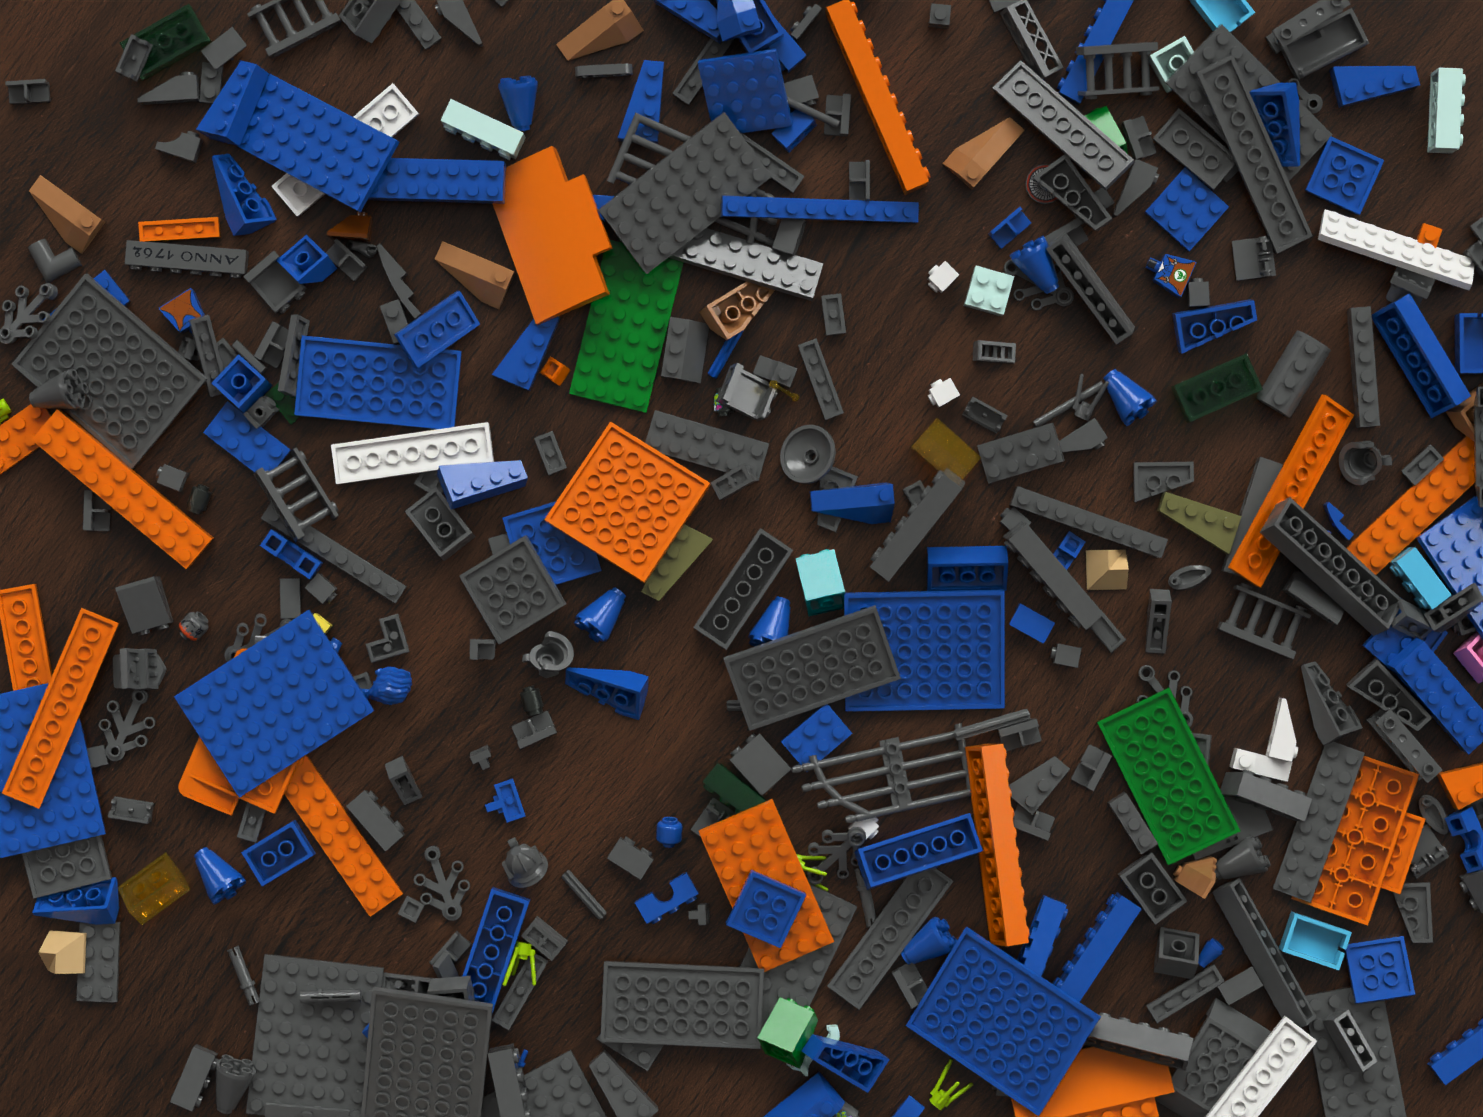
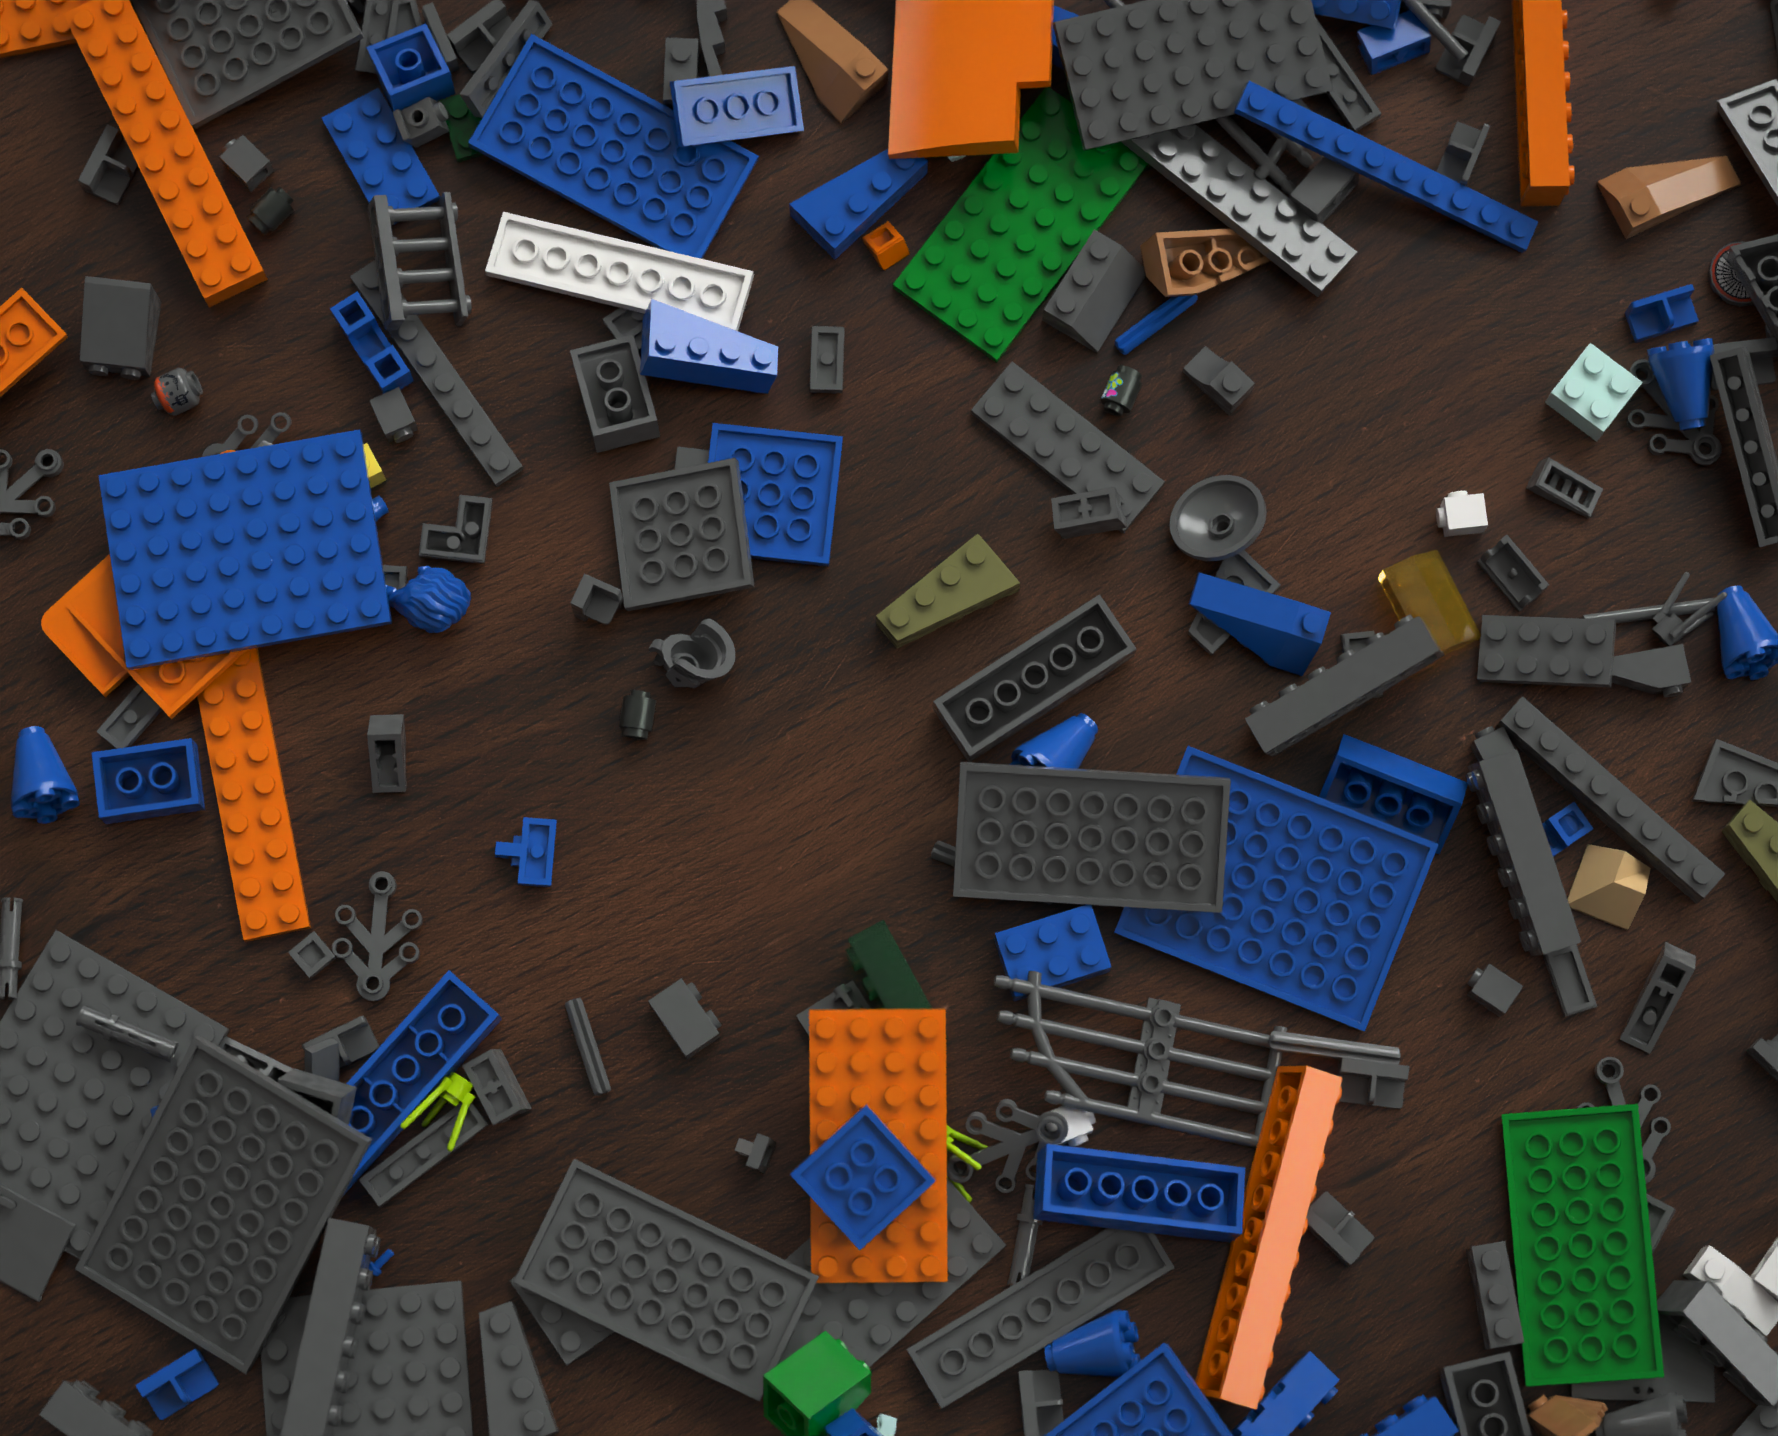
camera: 25 degrees right, 10 degrees down
(138, 669) = (65, 418): dark grey piece -> none
(290, 598) = (341, 408): dark grey tile -> none
(376, 819) = (320, 795): dark grey brick -> none
(481, 755) = (523, 767): dark grey tile -> none
(524, 864) = (515, 958): dark grey helmet -> none
(534, 729) = (621, 761): dark grey panel -> none
(601, 615) = (799, 629): blue cone -> none
(617, 688) = (775, 751): blue wedge -> none
(627, 502) = (912, 474): orange plate -> none
(652, 908) = (744, 1106): blue arch -> none
(669, 831) = (761, 1003): blue head -> none
(746, 393) = (1162, 390): panel -> none
(759, 763) = (947, 956): dark grey panel -> none
(773, 384) = (1209, 391): clear yellow hinge -> none
(820, 379) = (1283, 419): dark grey plate -> none
(821, 582) = (1157, 720): slope -> none
(833, 314) = (1342, 332): dark grey plate -> none
(941, 277) = (1530, 343): white brick -> none
(1031, 623) = (1460, 916): blue panel -> none
(1037, 784) = (1366, 1173): dark grey wing -> none
(1091, 767) = (1463, 1182): dark grey panel -> none
(1189, 577) = (1734, 950): dark grey arm -> none

